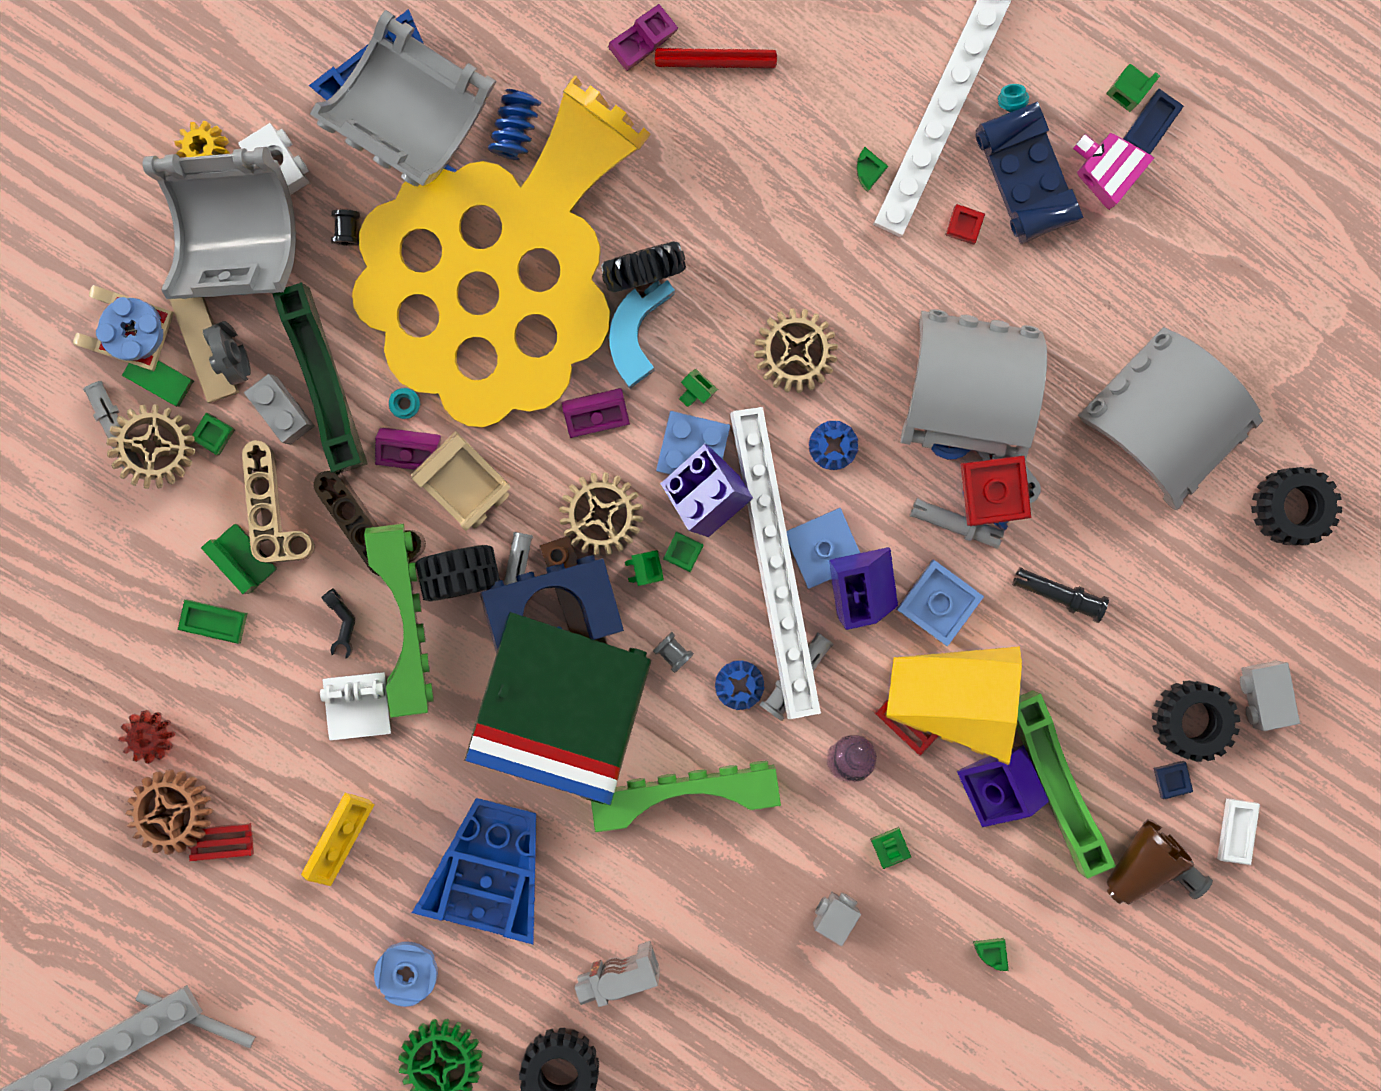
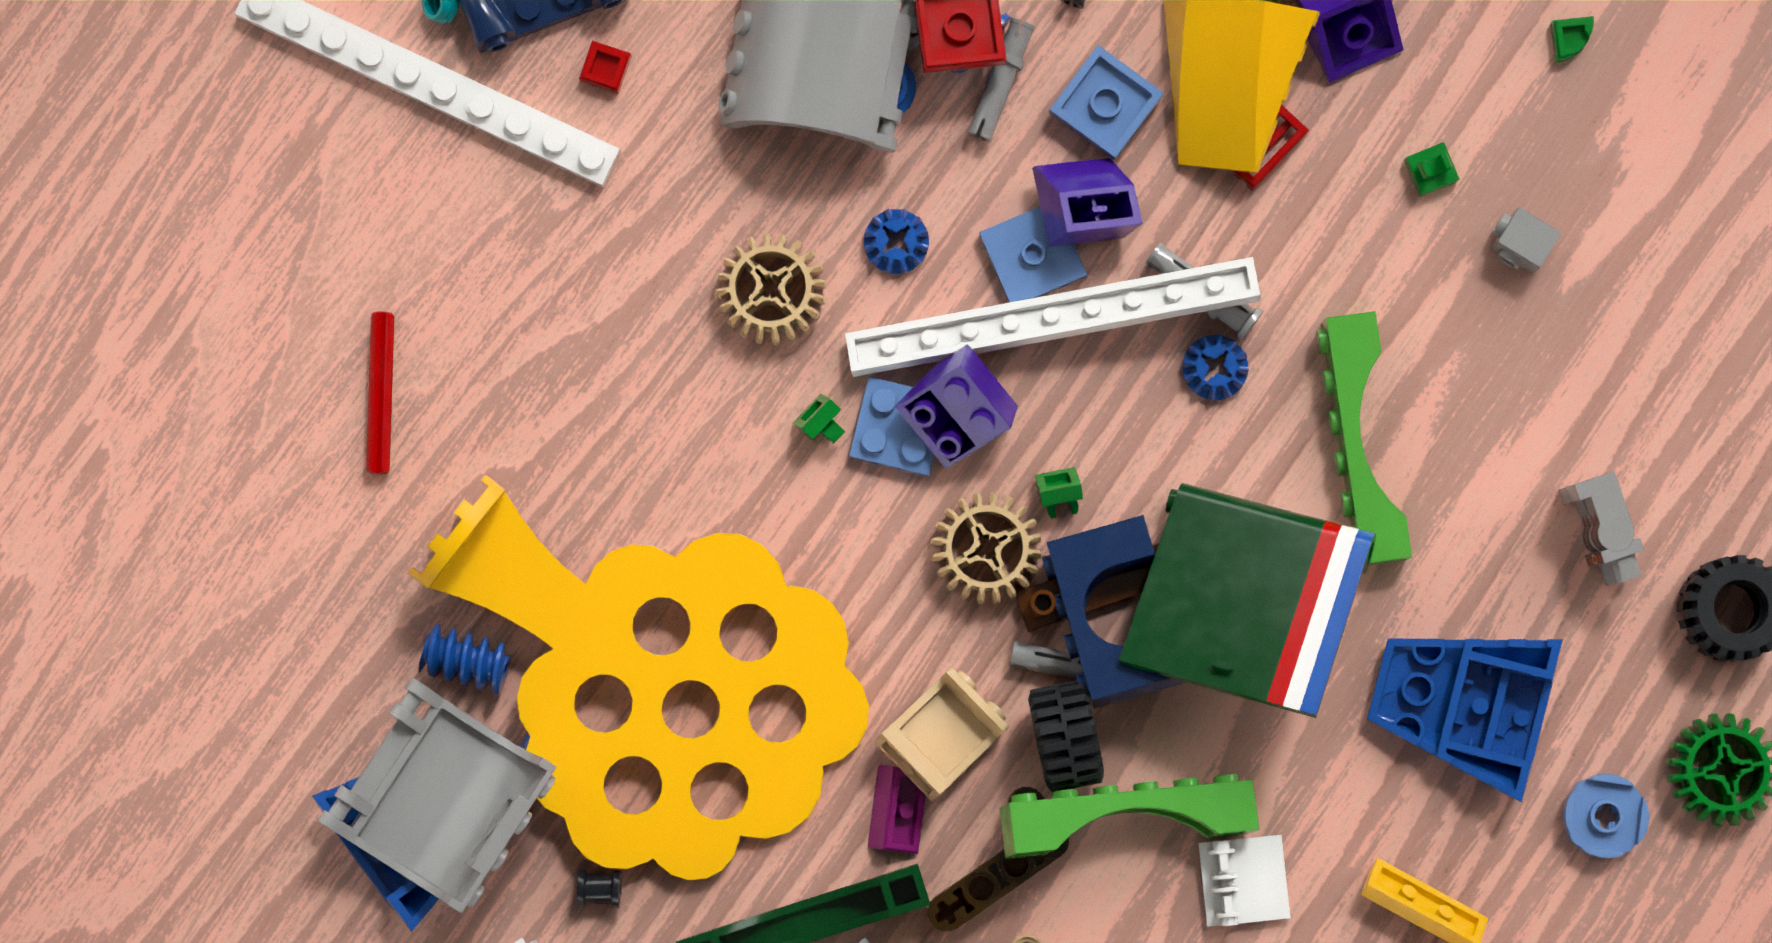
camera: 85 degrees left, 5 degrees down
(336, 603) = (1123, 893): black arm -> none
(397, 396) = (822, 812): teal plate -> none
(595, 413) = (850, 556): magenta slope -> none
(624, 329) = (751, 516): medium azure arch -> none
(643, 37) = (350, 489): magenta slope -> none
(643, 266) = (660, 486): black gear -> none
(673, 652) = (1171, 454): dark grey bush -> none
(683, 551) = (1037, 441): green tile -> none
(852, 758) = (1313, 219): clear purple hair -> none
(869, 168) = (530, 191): green tile -> none

